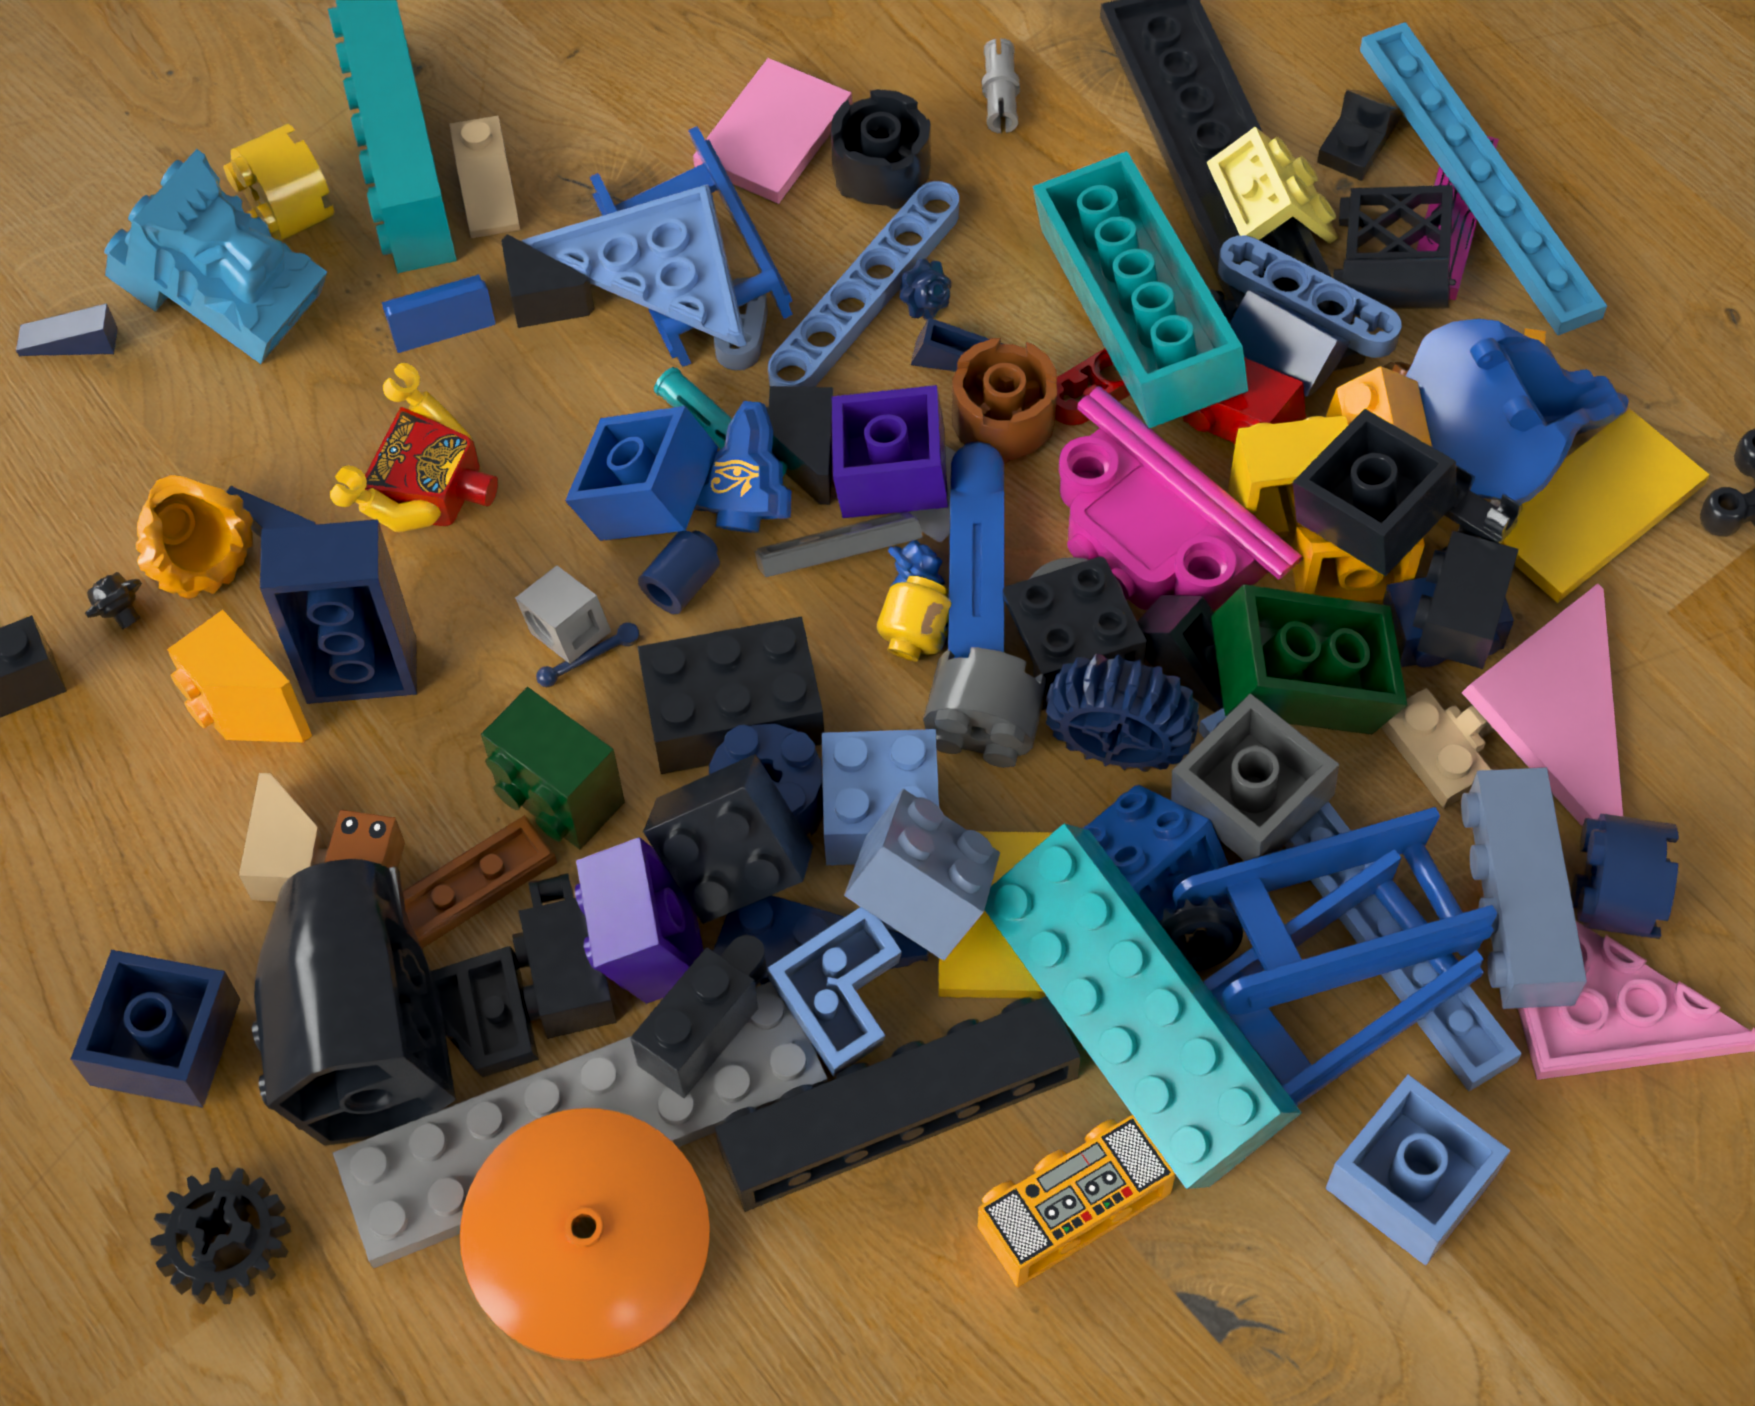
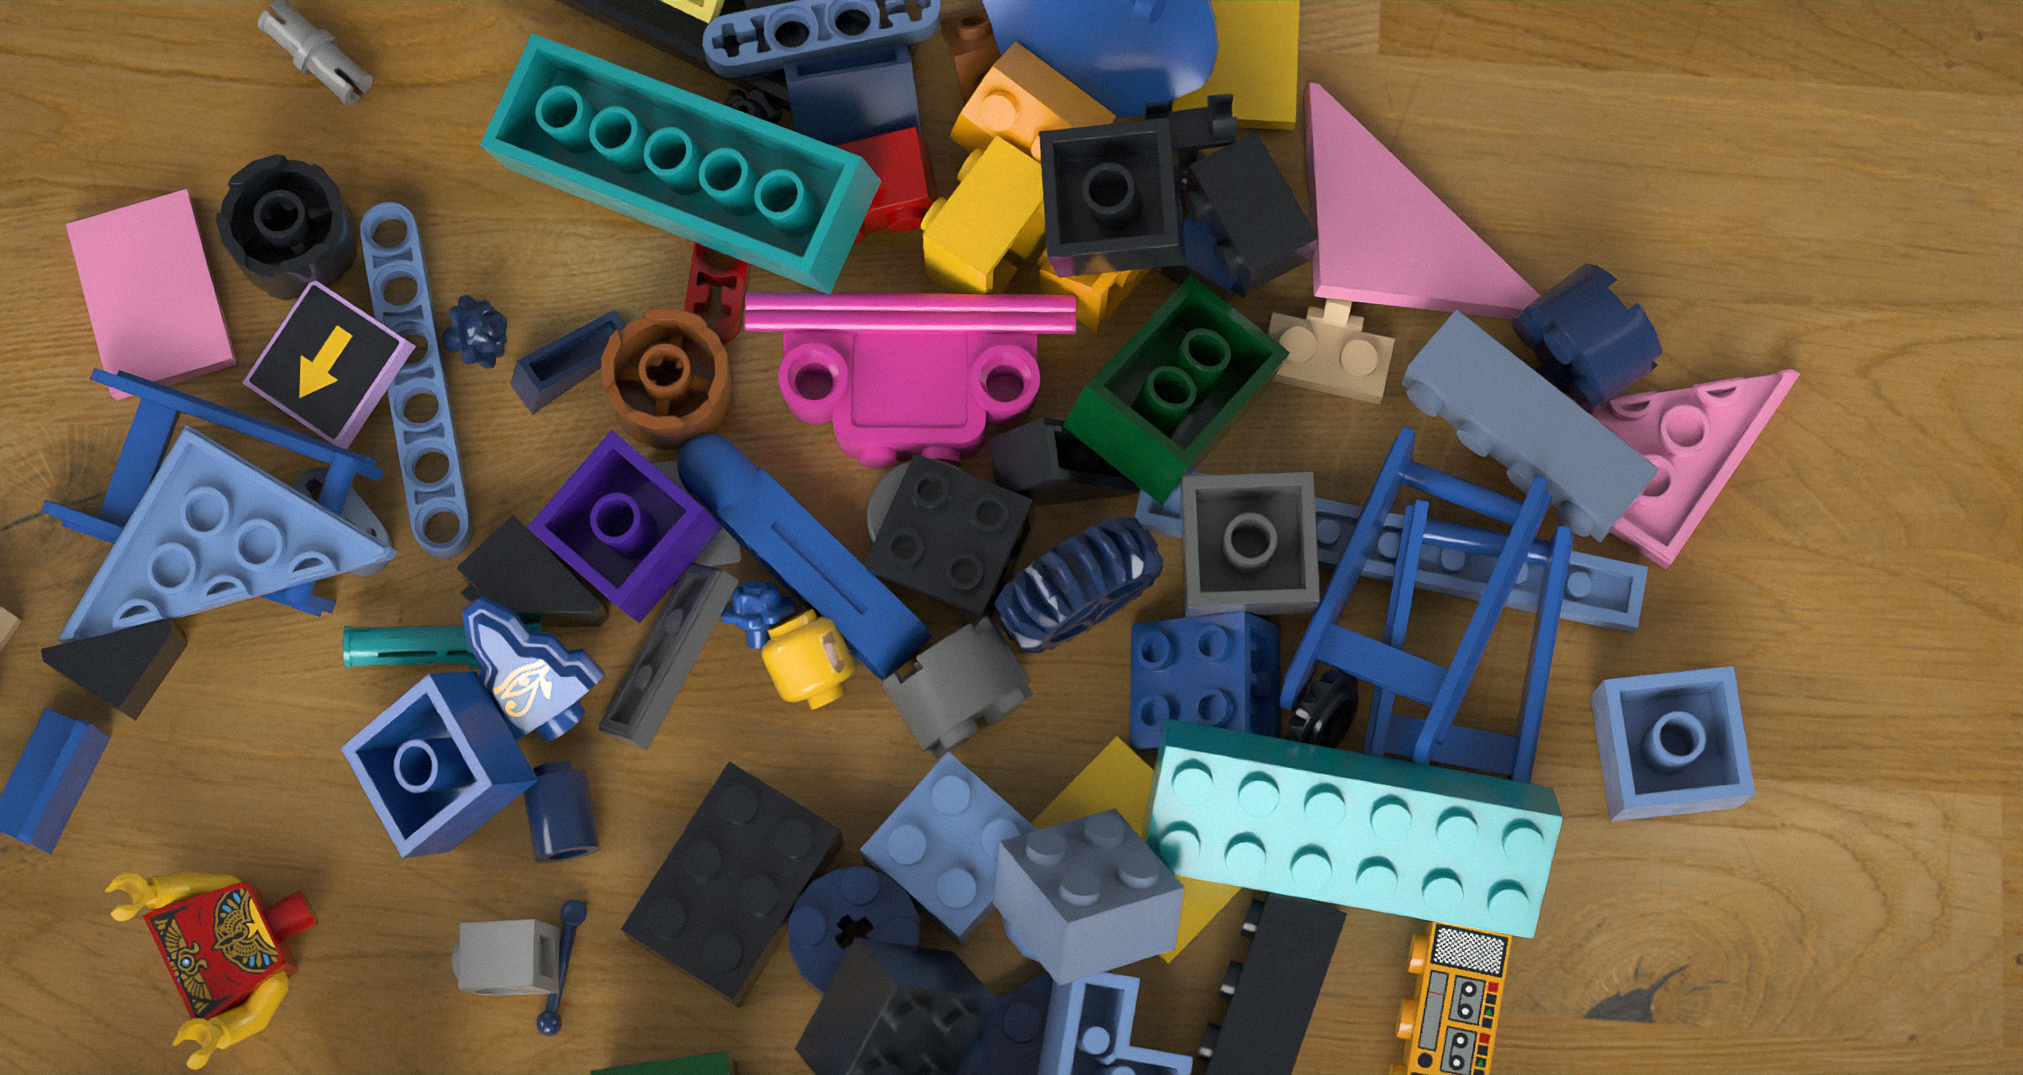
camera: 50 degrees left, 15 degrees up
(824, 236) = (328, 364): none -> black tile

